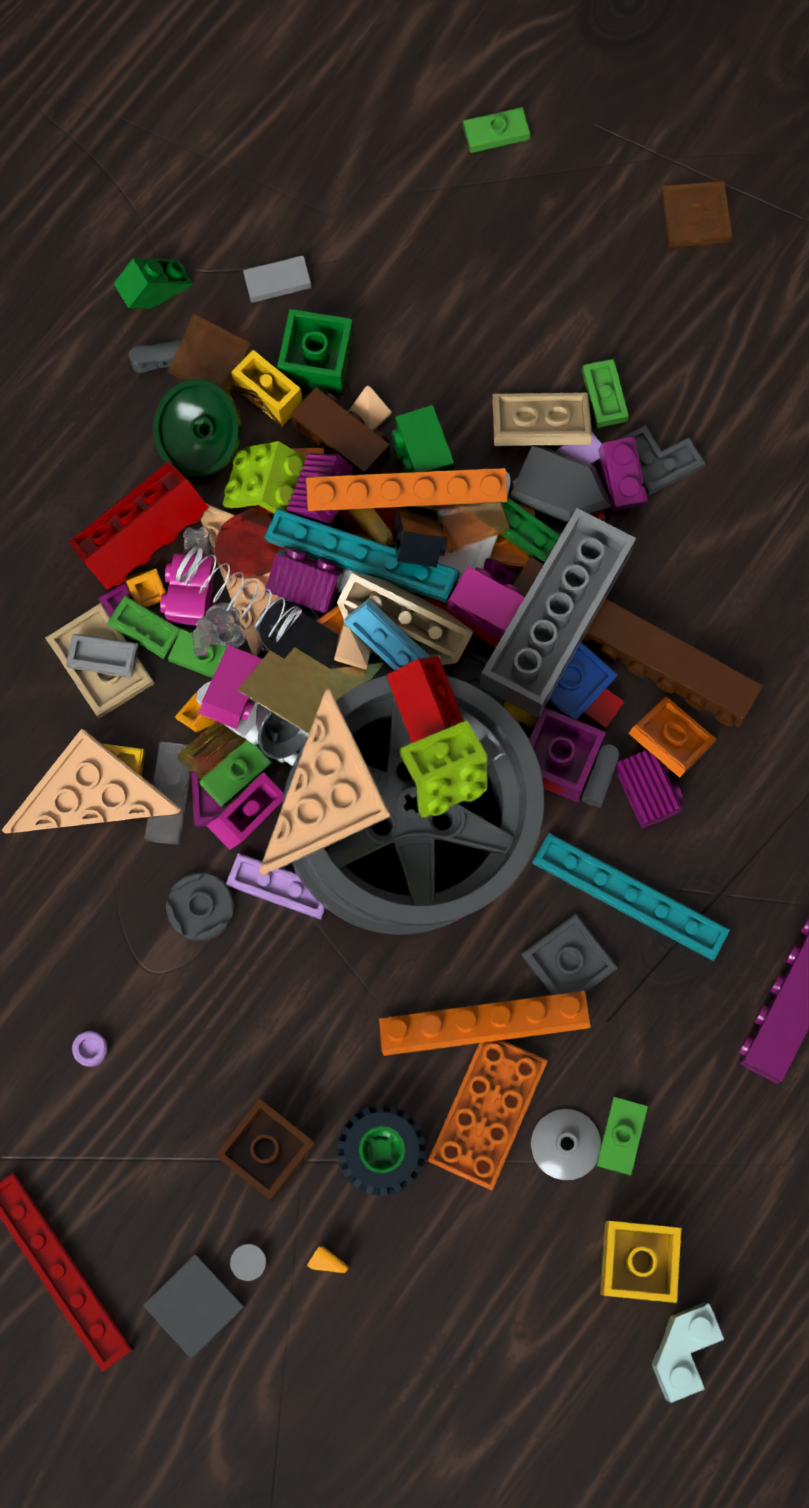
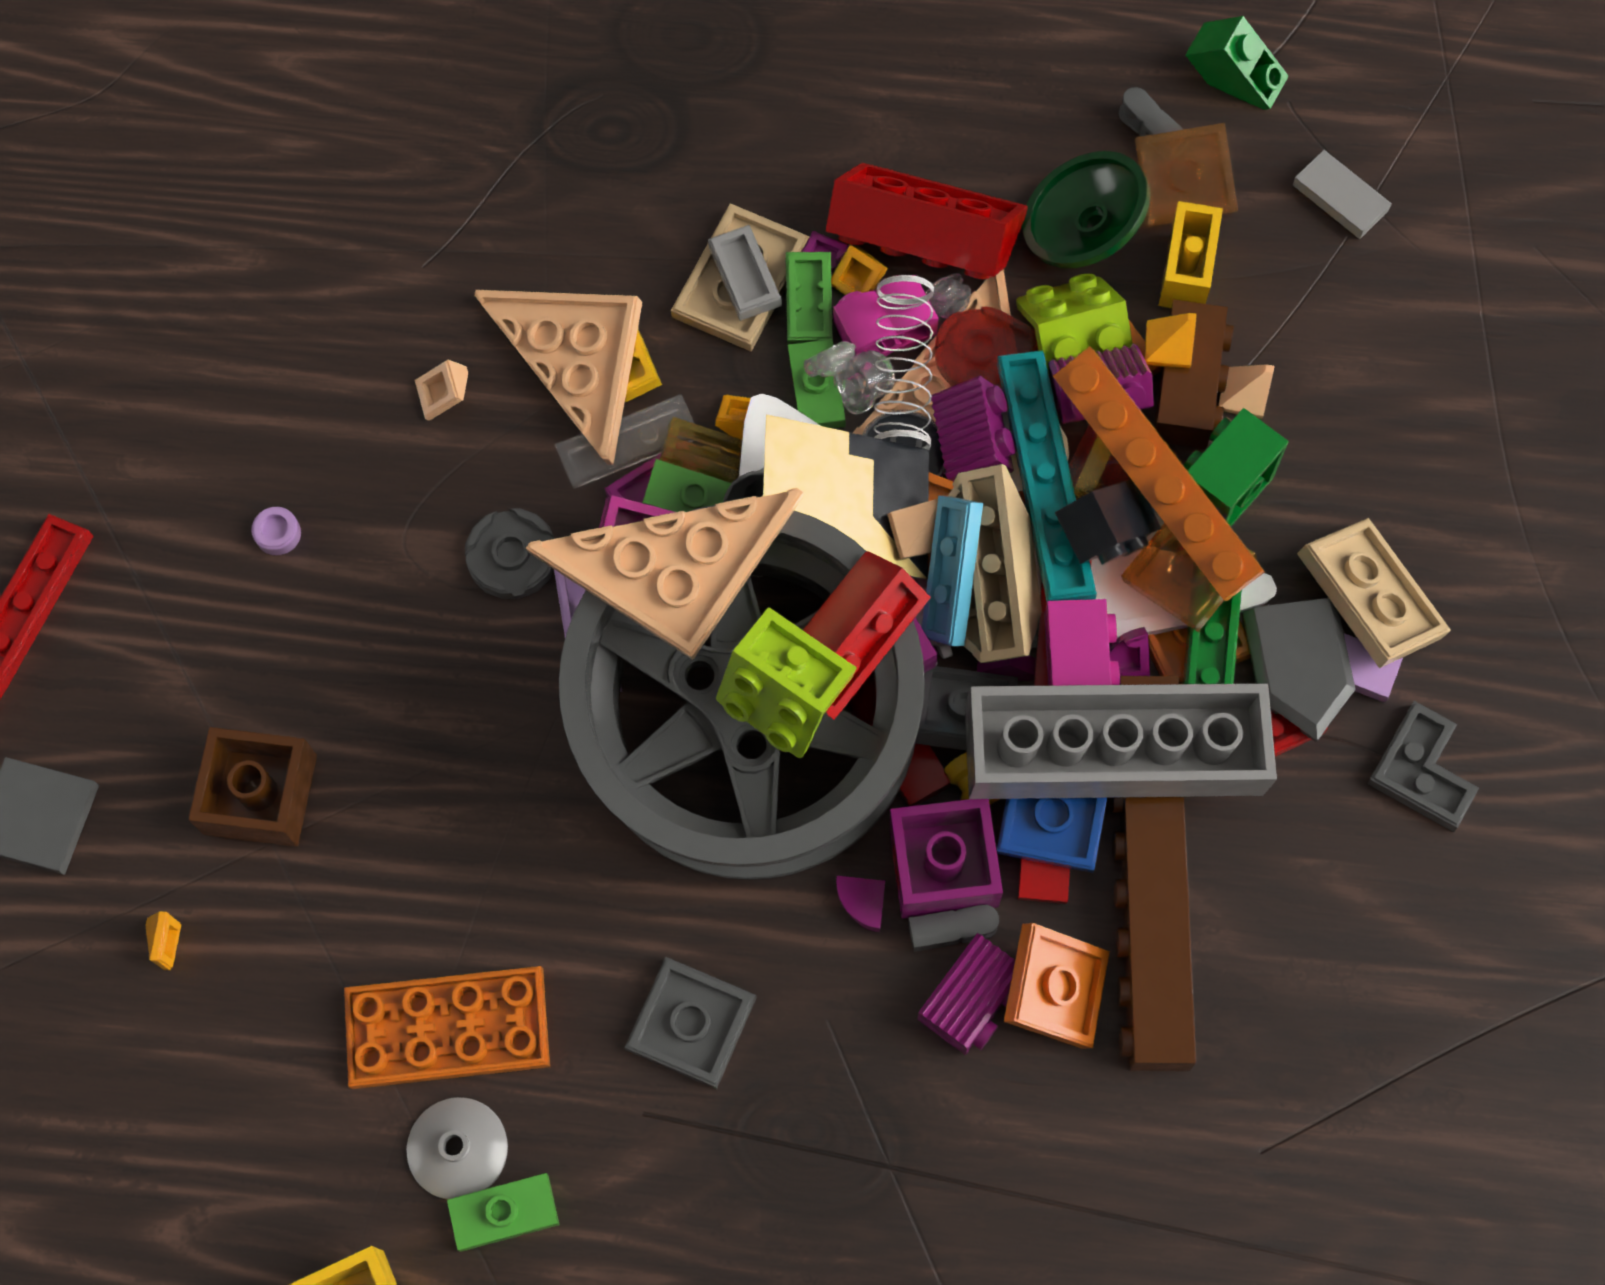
camera: 60 degrees right, 5 degrees down
(58, 889) = (441, 388): none -> light nougat slope
(222, 699) = (805, 406): dark pink brick -> none
(248, 1262) = (116, 848): light grey tile -> none
(316, 350) = (1275, 282): green brick -> none
(319, 432) = (1170, 340): none -> light orange slope
(381, 1150) = (323, 922): black wheel -> none
(484, 1023) = (551, 960): orange plate -> none
(556, 818) = (862, 900): none -> magenta tile
(605, 393) = (1464, 650): bright green plate -> none
(622, 474) = (1366, 728): magenta brick -> none
(631, 896) = (819, 1056): teal tile -> none

